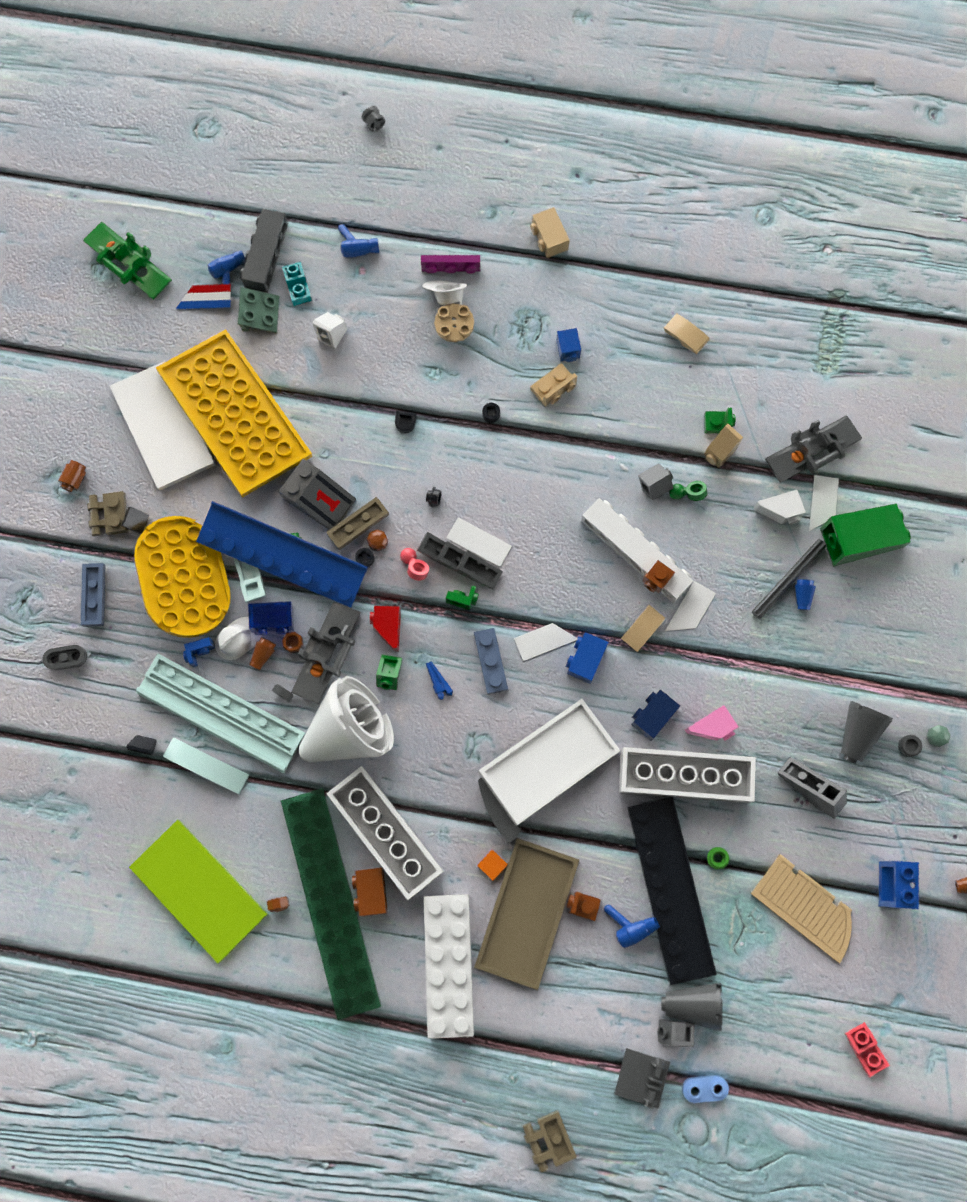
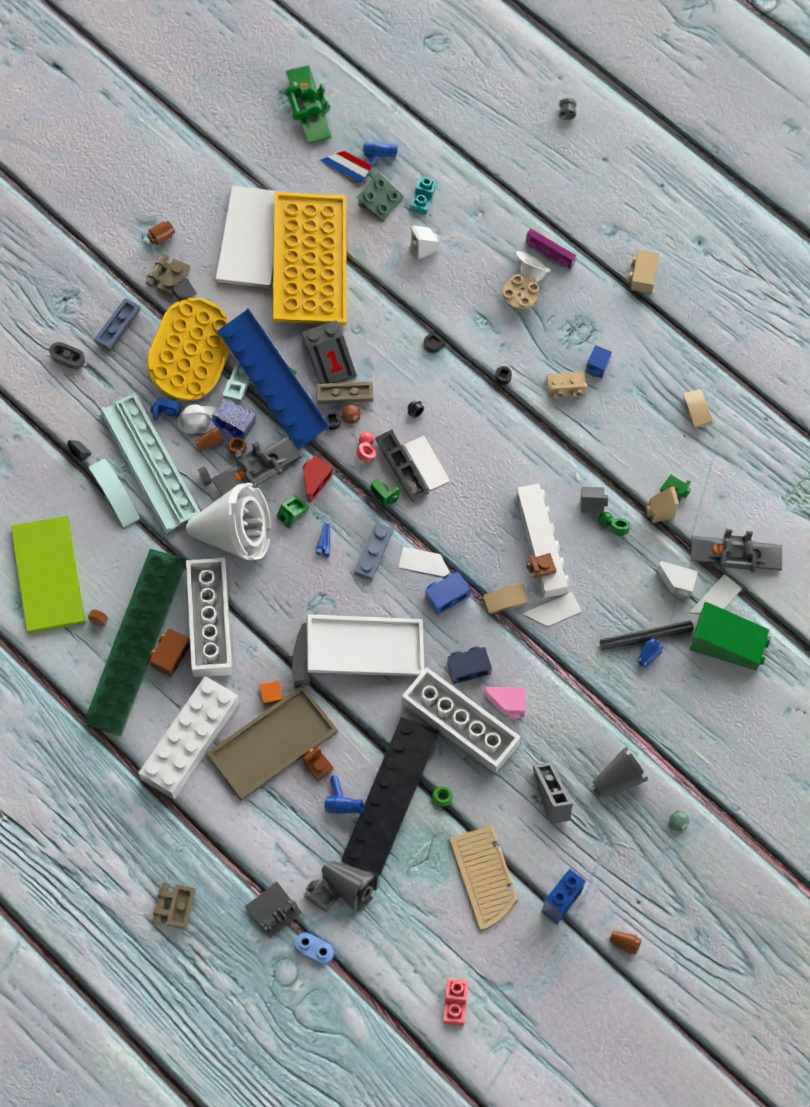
camera: 30 degrees right, 10 degrees down
(264, 250) = (415, 156): dark grey brick -> none
(356, 247) = (487, 195): blue piece -> none
(910, 745) = (651, 814): dark grey tile -> none

